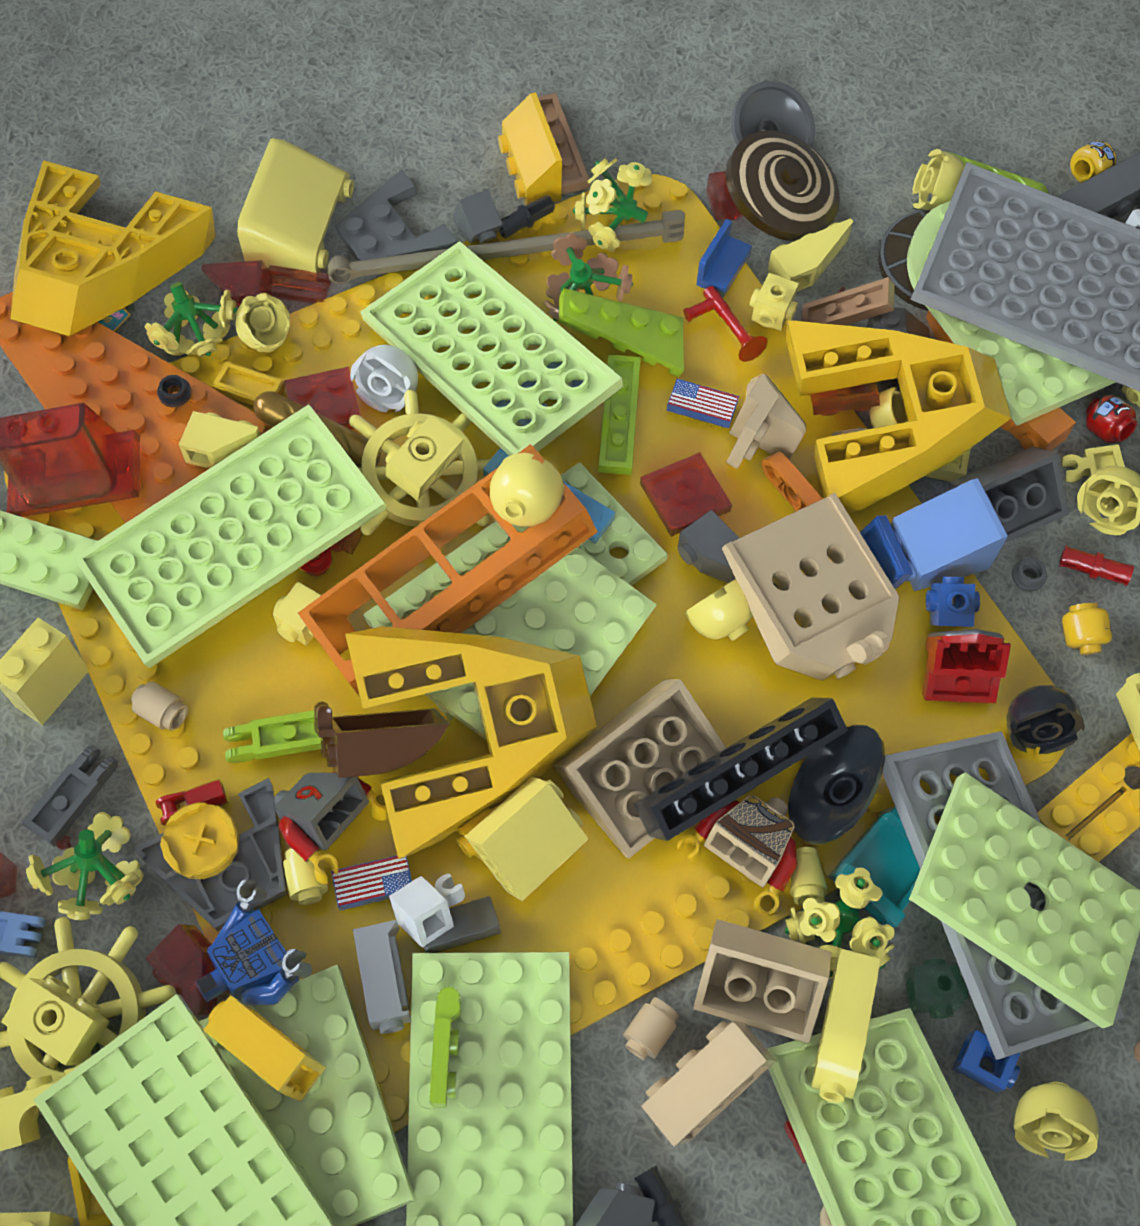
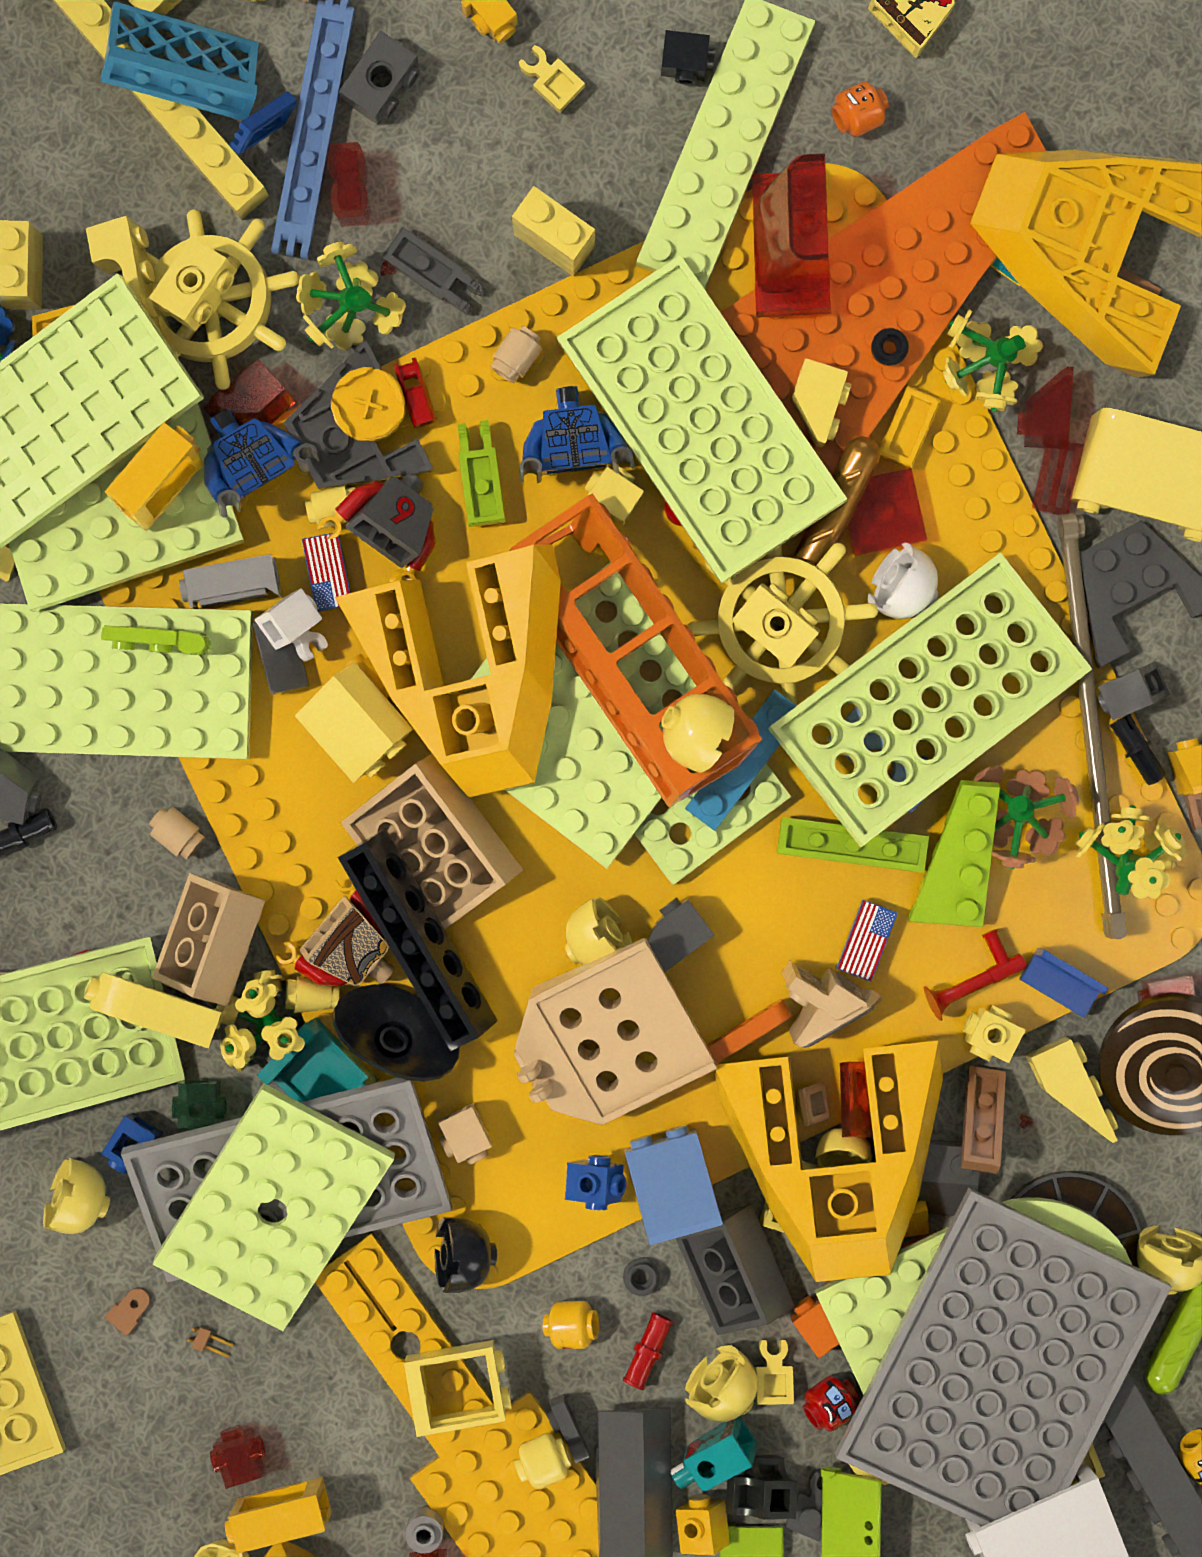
camera: 90 degrees right, 25 degrees up
(246, 647) = (572, 440): none -> torso
(262, 322) = (982, 442): light yellow hair -> none
(376, 740) = (443, 573): reddish brown piece -> none
(684, 493) = (746, 910): clear red plate -> none
(707, 1081) = (115, 880): tan brick -> none
(887, 550) = (661, 1119): blue tile -> none
(925, 722) = (465, 1135): none -> tan brick
(965, 666) = (526, 1182): red piece -> none

